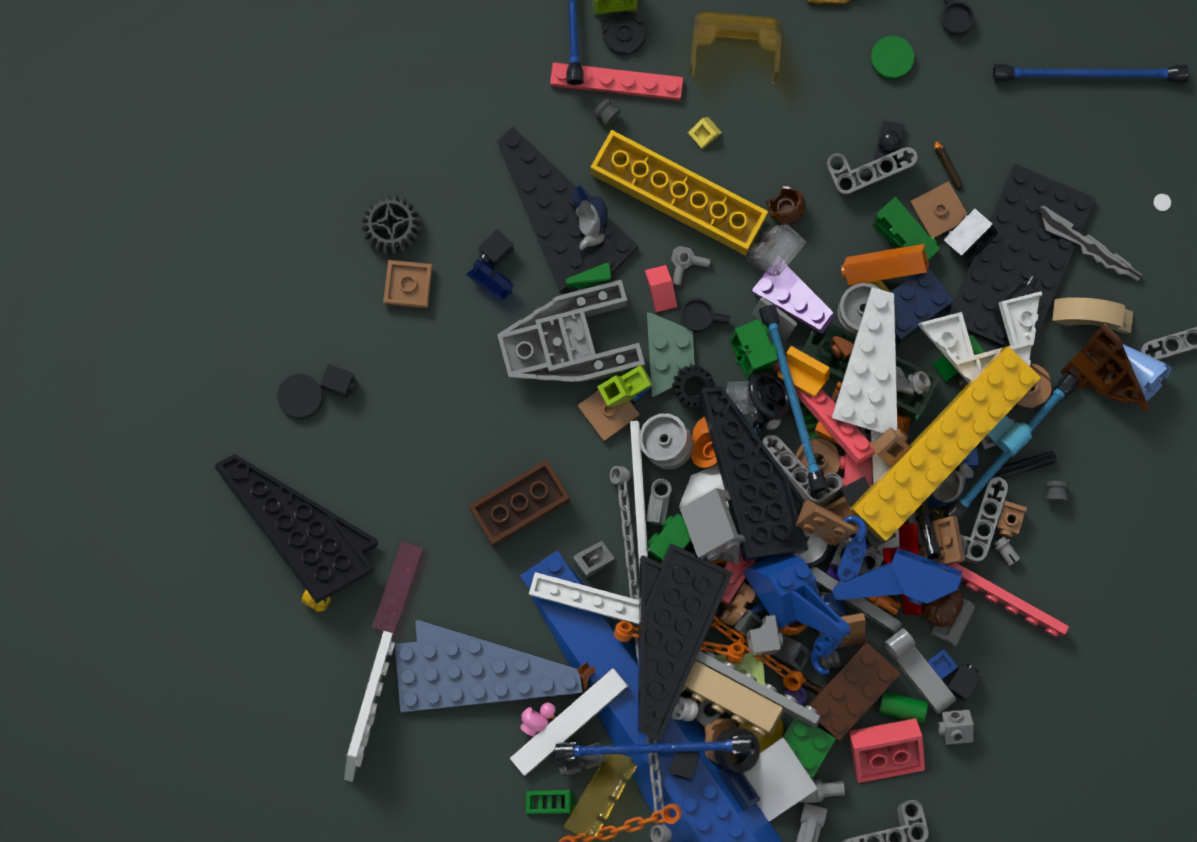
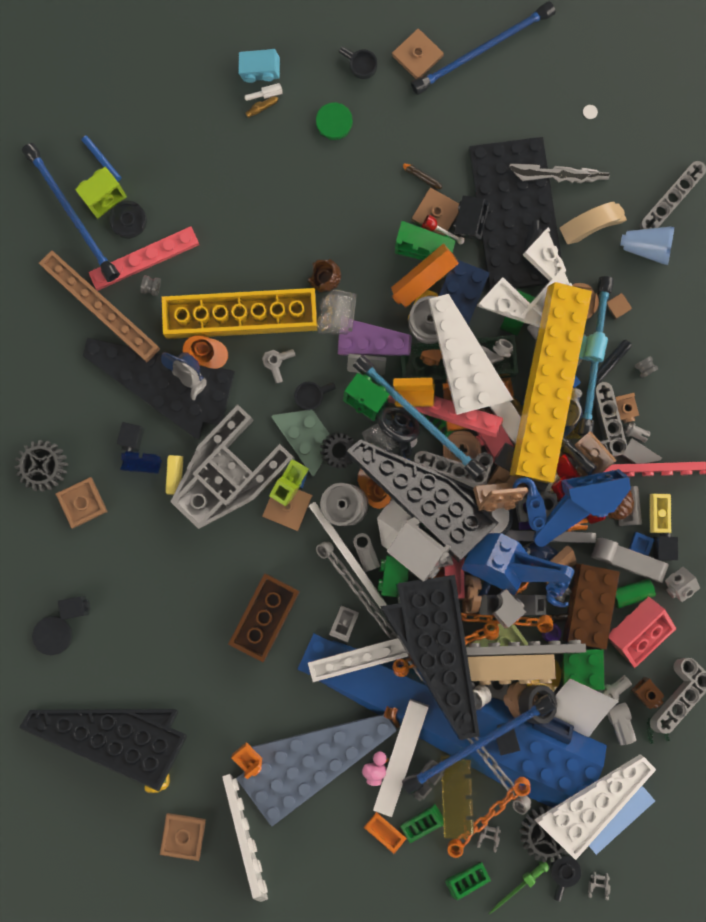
camera: 30 degrees left, 5 degrees up
(308, 668) = (183, 836): none -> medium nougat plate
(397, 587) = (213, 734): clear pink tile -> none
(418, 630) = (248, 760): none -> orange bracket
(507, 787) = (385, 832): none -> orange tile
(516, 310) = (174, 473): none -> light yellow brick
(543, 102) = (99, 306): none -> medium nougat plate
(590, 278) = (215, 415): green slope -> none
(622, 210) = (206, 351): none -> orange piece
(661, 288) = (270, 392): coral slope -> none
(704, 132) = (231, 257): light yellow slope -> none
(761, 28) = (208, 164): clear yellow windscreen -> none
(849, 807) = (642, 690): none -> reddish brown brick
(874, 167) = (371, 209): light grey beam -> none
(889, 140) = (370, 186): black tile -> none
(891, 445) = (513, 409): medium nougat brick -> none
(925, 218) = (430, 224): none -> hinge
(979, 644) = (660, 513): none -> light yellow brick
(996, 573) = (639, 454): none -> light grey tile
(1019, 40) = (417, 54): none -> medium nougat plate
(1067, 414) = (618, 306): none -> medium nougat tile
(1106, 368) = (630, 254): reddish brown wedge -> none

